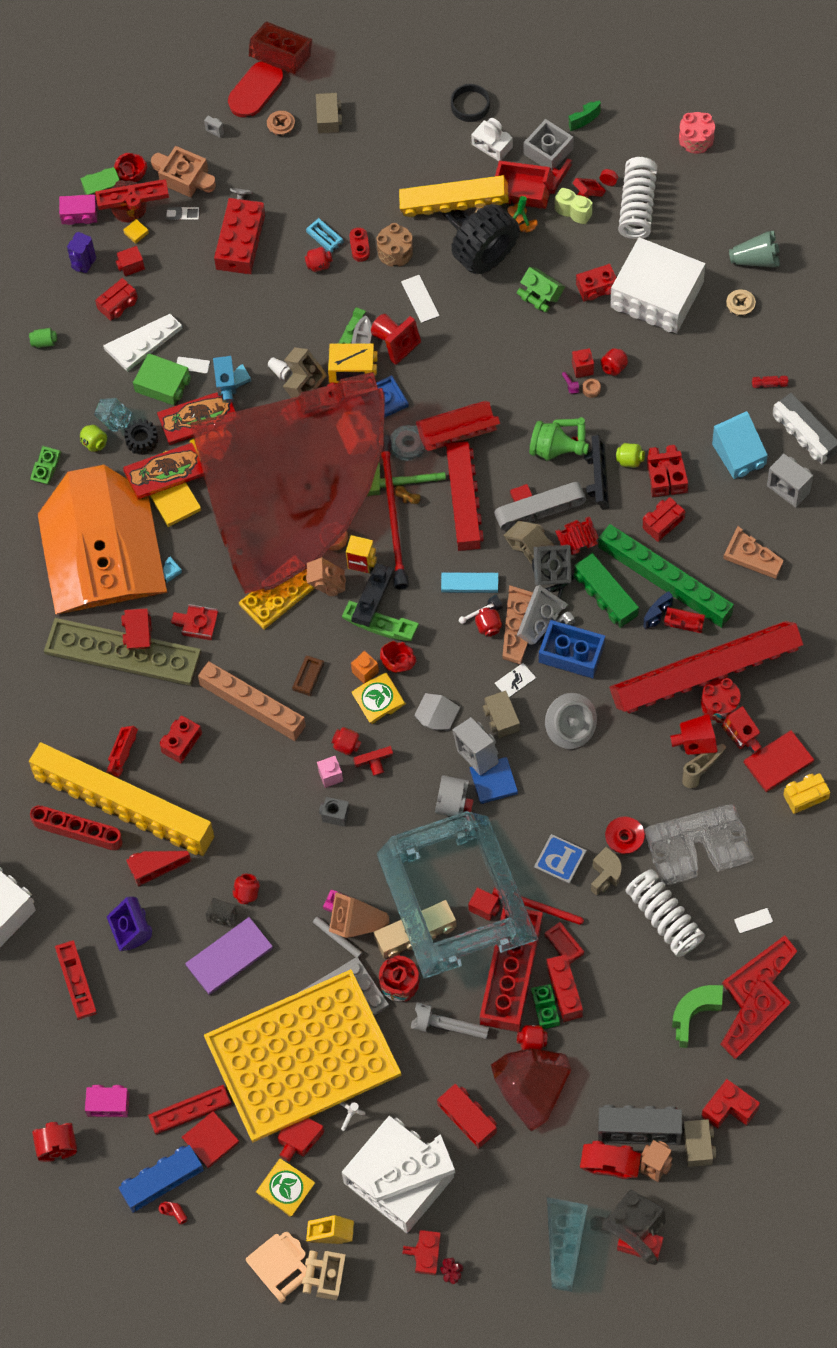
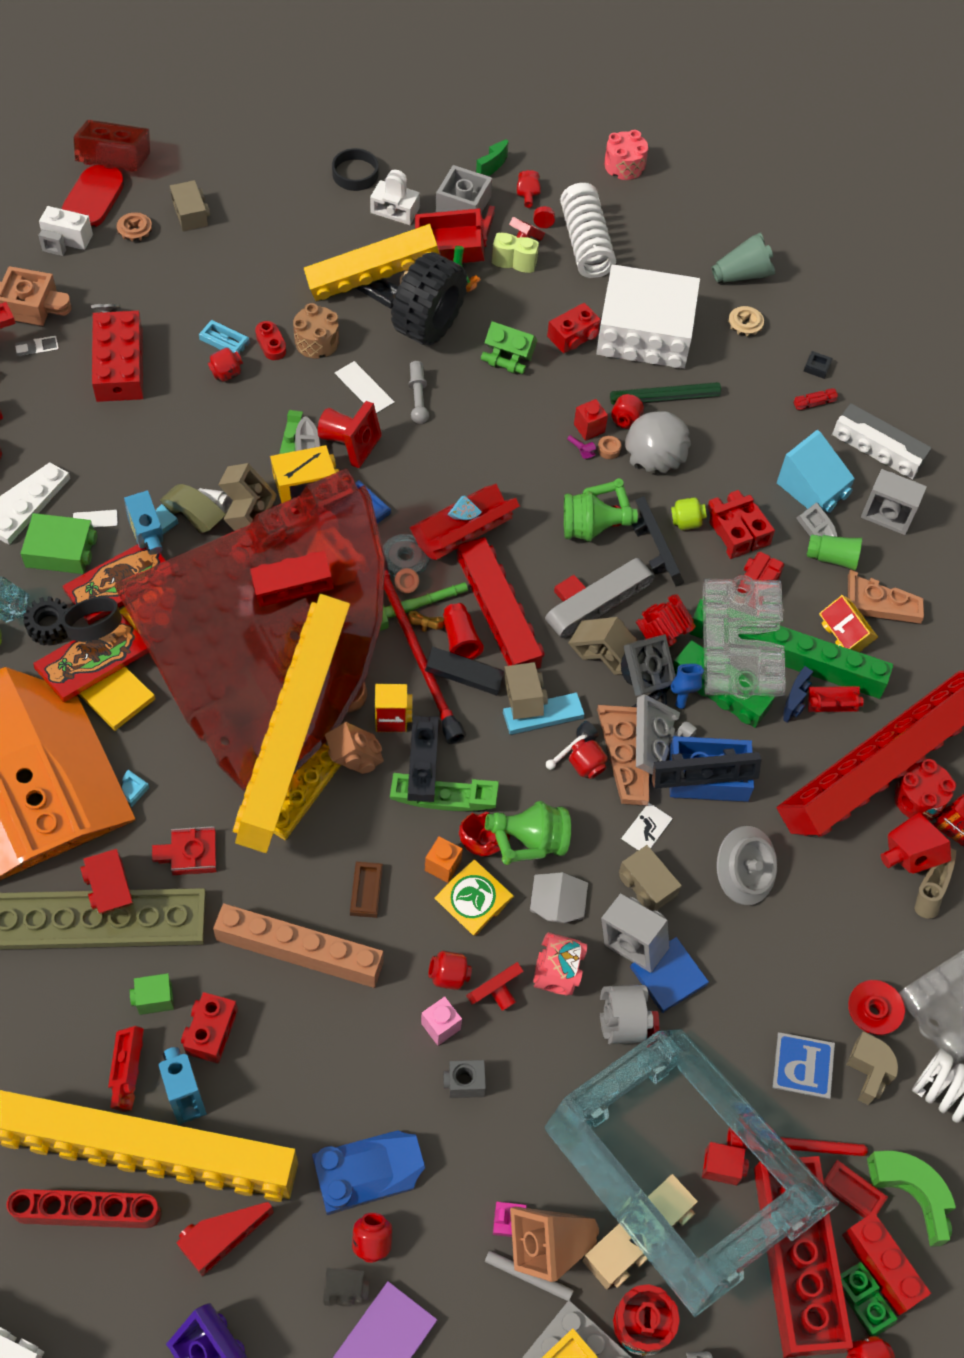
camera: 25 degrees left, 5 degrees down
(149, 709) = (152, 994): none -> bright green brick
(153, 765) = (181, 1086): none -> dark azure torso
(172, 453) = (94, 631): none -> black tyre
(232, 117) = (73, 226): none -> white brick
(255, 850) = (368, 1170): none -> blue slope
(264, 371) = (194, 505): none -> olive brick
(284, 548) = (289, 724): none -> yellow brick
(315, 444) = (291, 578): none -> red brick
(402, 462) = (406, 580): none -> nougat tile
(418, 754) = (559, 964): none -> coral brick
(422, 538) = (464, 670): none -> black tile
(428, 511) = (461, 632): none -> red plant
(436, 663) = (538, 828): none -> bright green piece
(455, 329) = (419, 413): none -> light grey pin
(457, 418) = (464, 510): none -> medium azure tile
(458, 563) = (525, 690): none -> dark tan brick
(561, 648) = (706, 769): none -> black hinge
(576, 583) = (686, 681): none -> blue piece
(604, 942) = (922, 1182): none -> bright green arch
(606, 146) = (528, 186): none -> red piece
(621, 541) = (735, 659): none -> clear connector
(627, 393) = (658, 441): none -> light grey piece
(654, 352) = (670, 392): none -> dark green axle
(715, 568) = (847, 624): none -> brick
(728, 486) = (816, 522): none -> light grey plate
(732, 508) = (835, 550): none -> bright green plant
(784, 352) = (818, 364): none -> black tile

